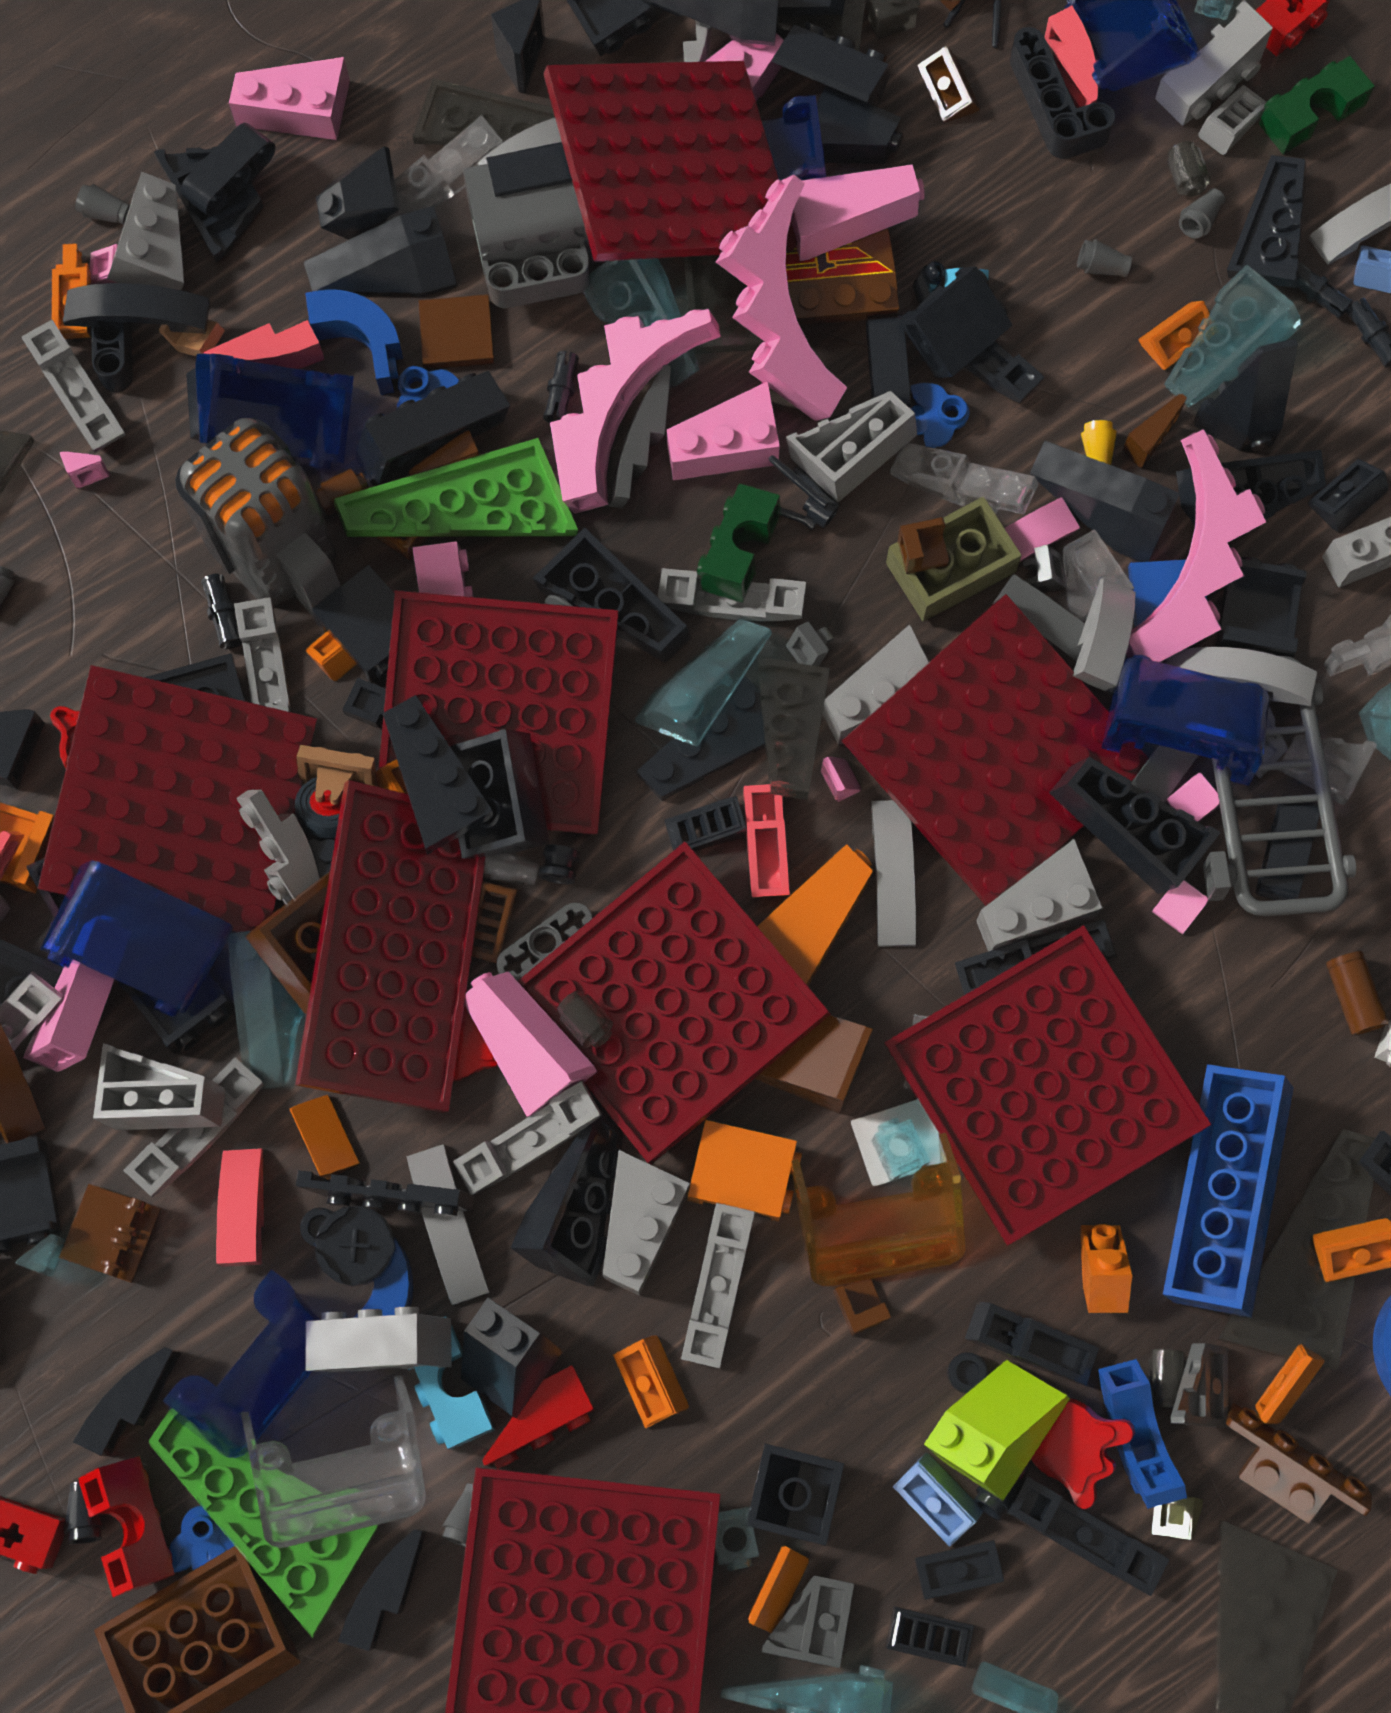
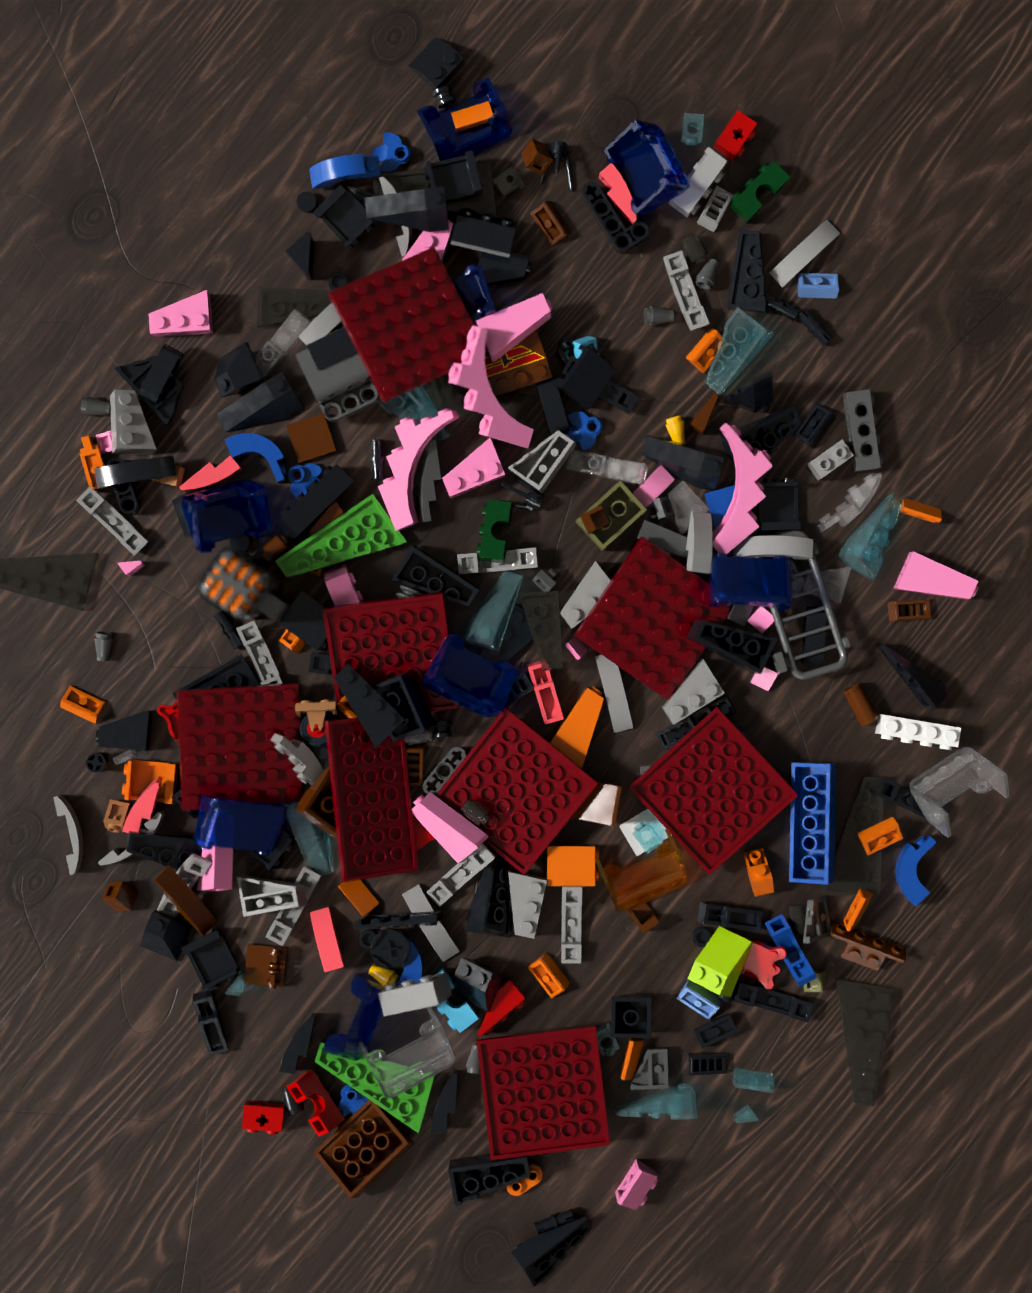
camera: 15 degrees left, 15 degrees up
(327, 1298) = (383, 975): none -> yellow cone
(628, 777) = (469, 678): none -> clear blue windscreen
(1156, 228) = (685, 291): none -> light grey slope

